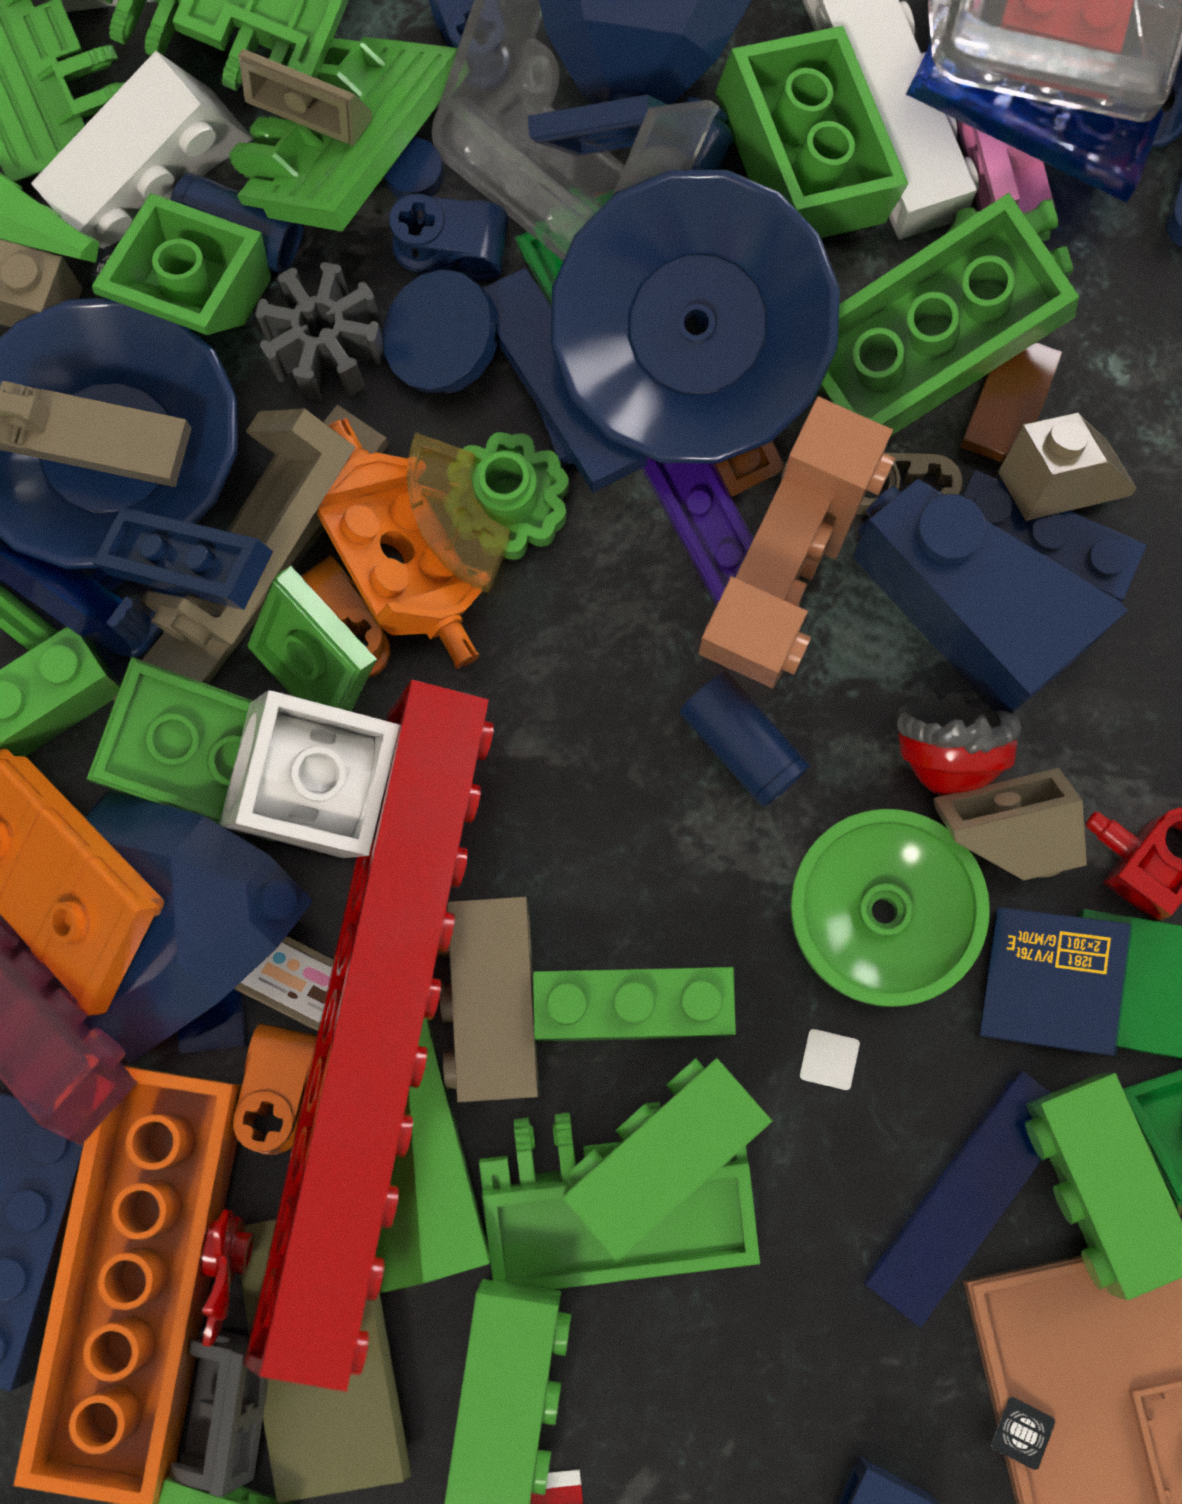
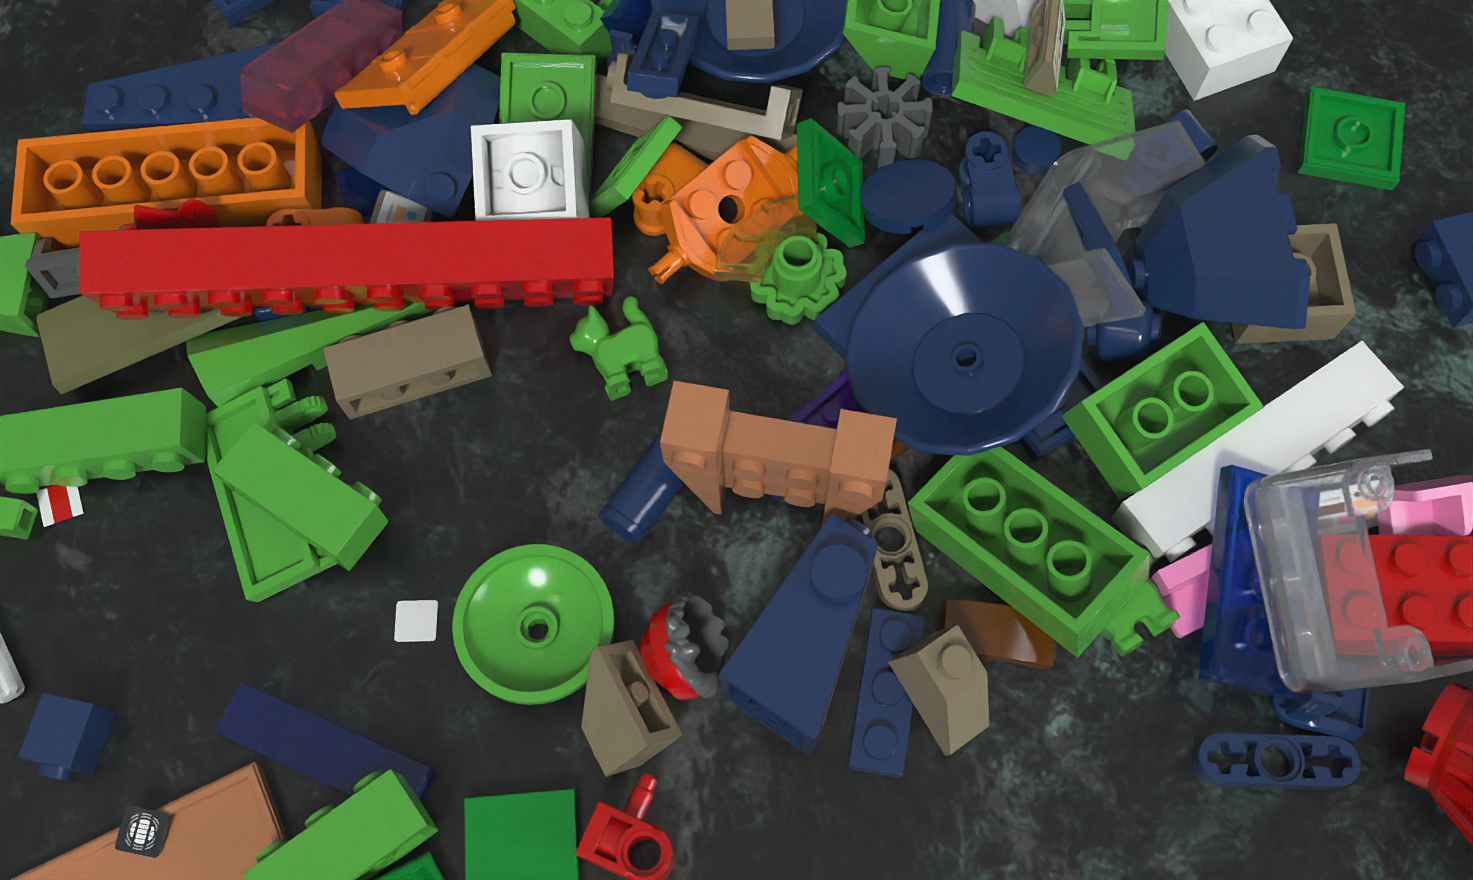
camera: 75 degrees right, 10 degrees down
(404, 415) = (830, 183): none -> green tile
(555, 738) = (623, 352): none -> bright green animal
(634, 1004) = (422, 457): bright green brick -> none
(1056, 981) = (506, 778): dark blue tile -> none

